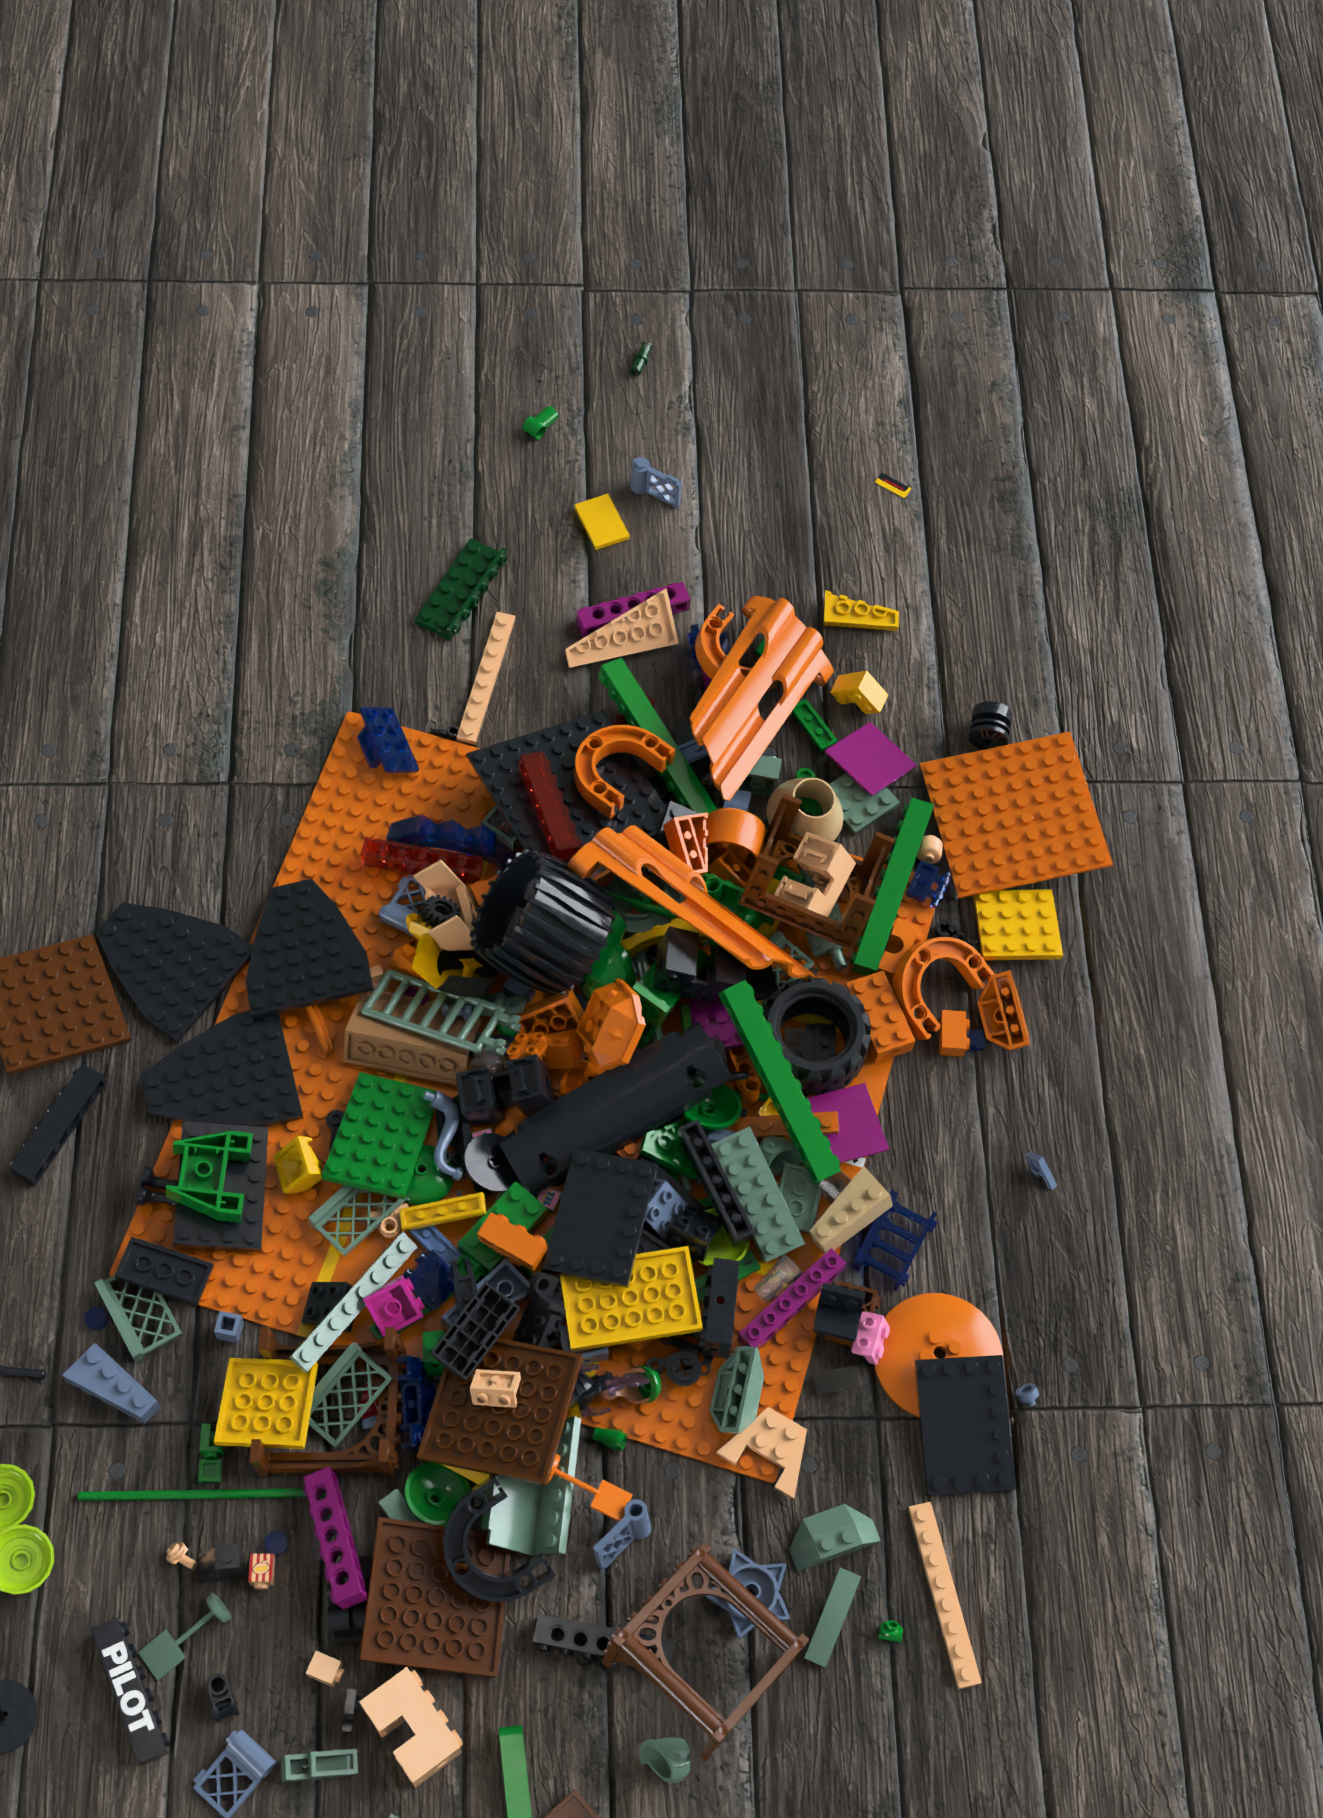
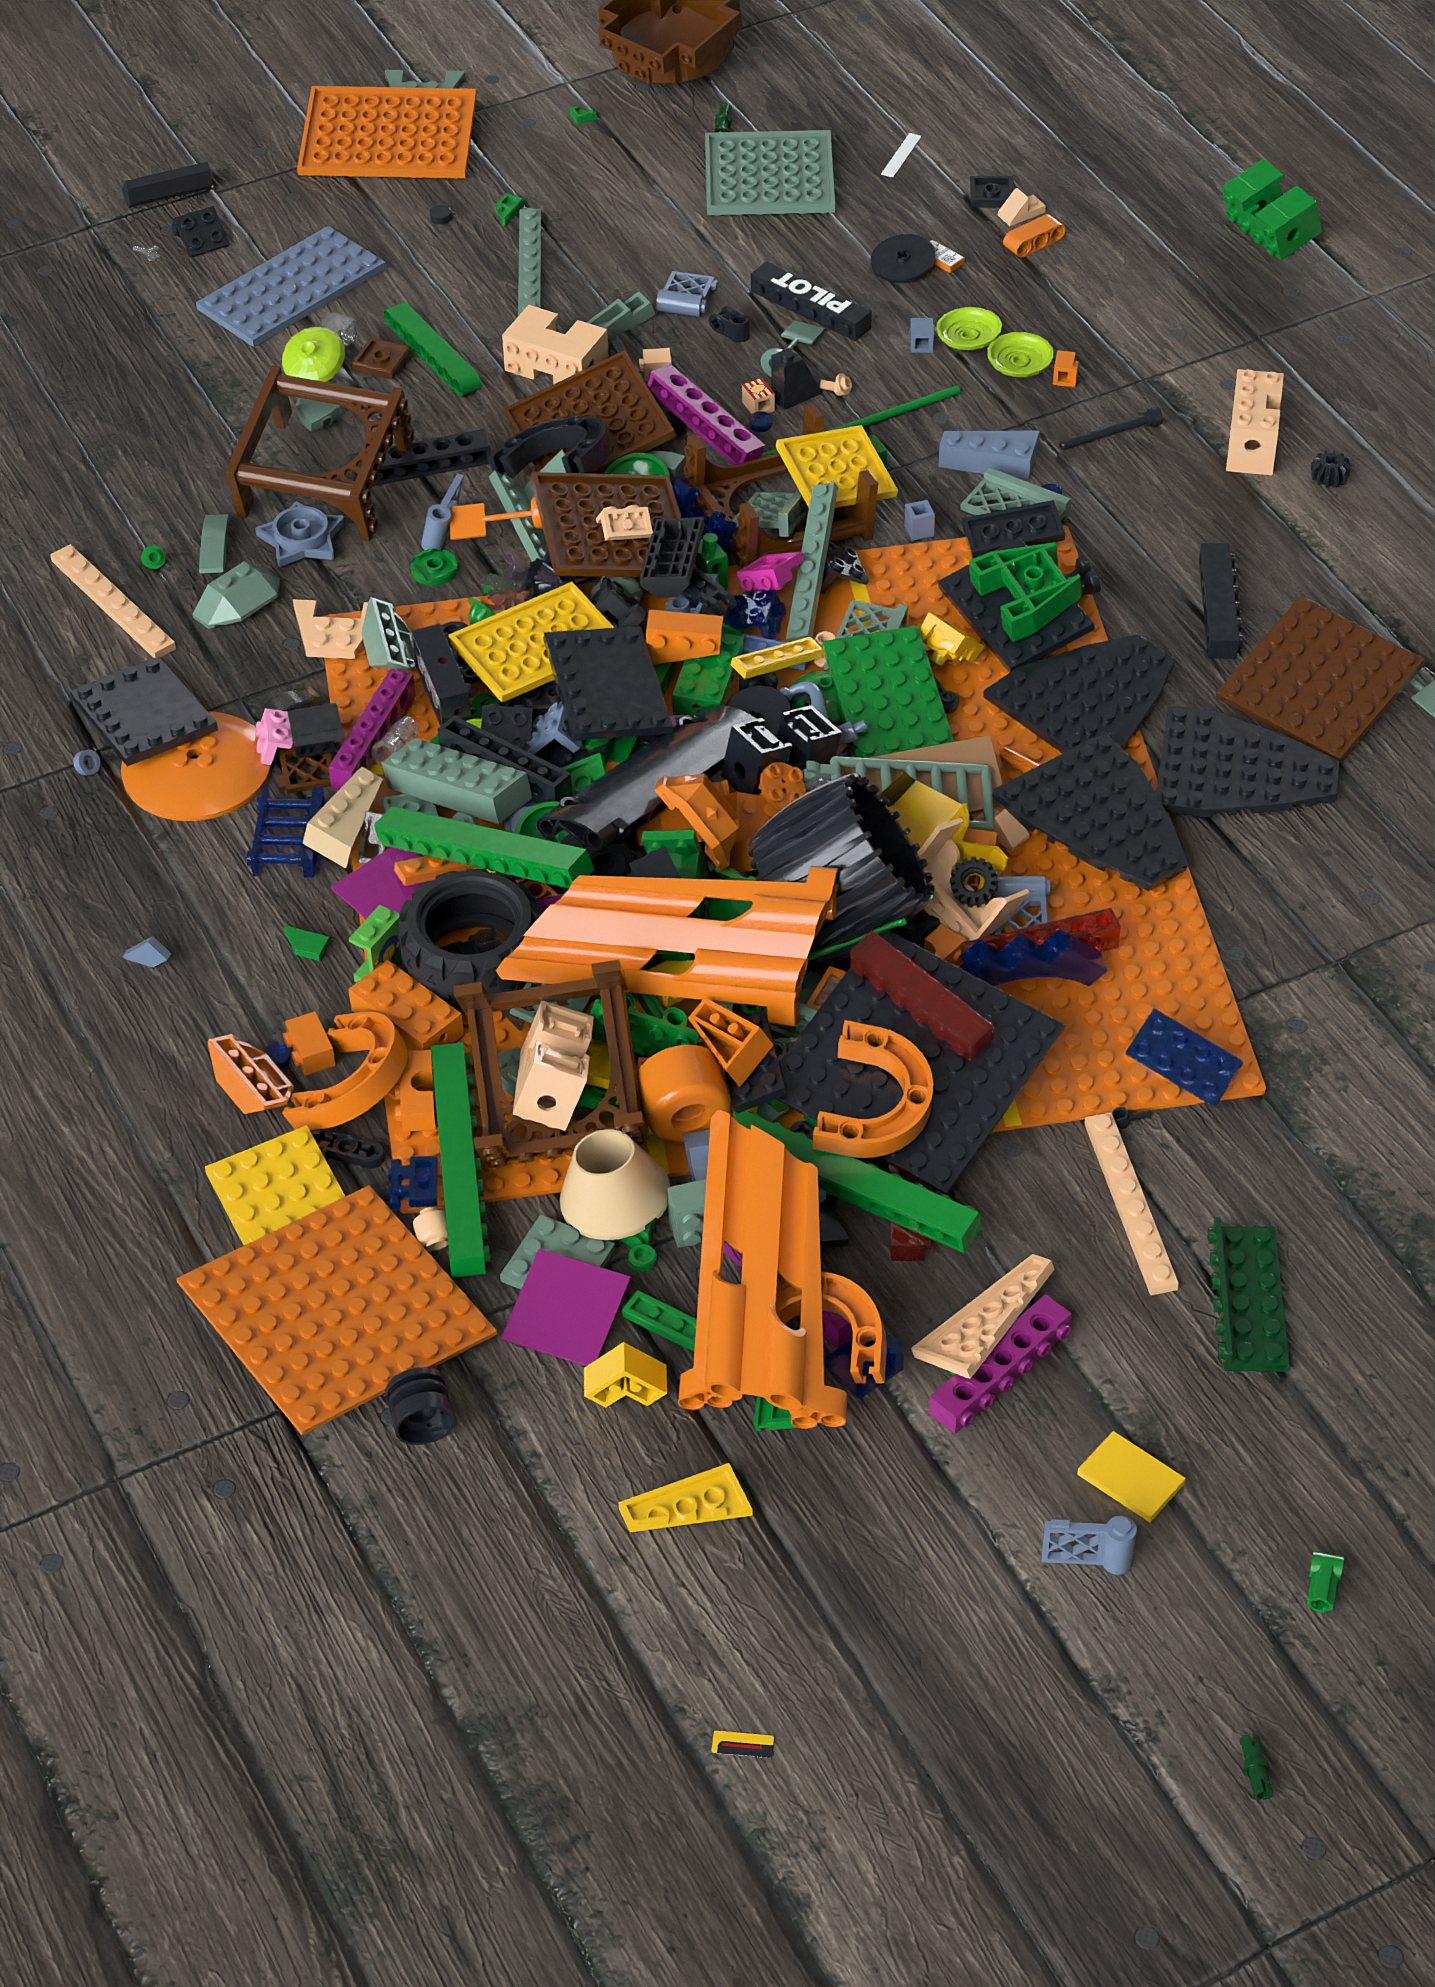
camera: 160 degrees right, 15 degrees down
(62, 1583) = (921, 335): none -> sand blue brick
(655, 1483) = (424, 574): none -> green tile
(880, 1066) = (380, 939): none -> bright green panel
(920, 1130) = (307, 943): none -> green tile

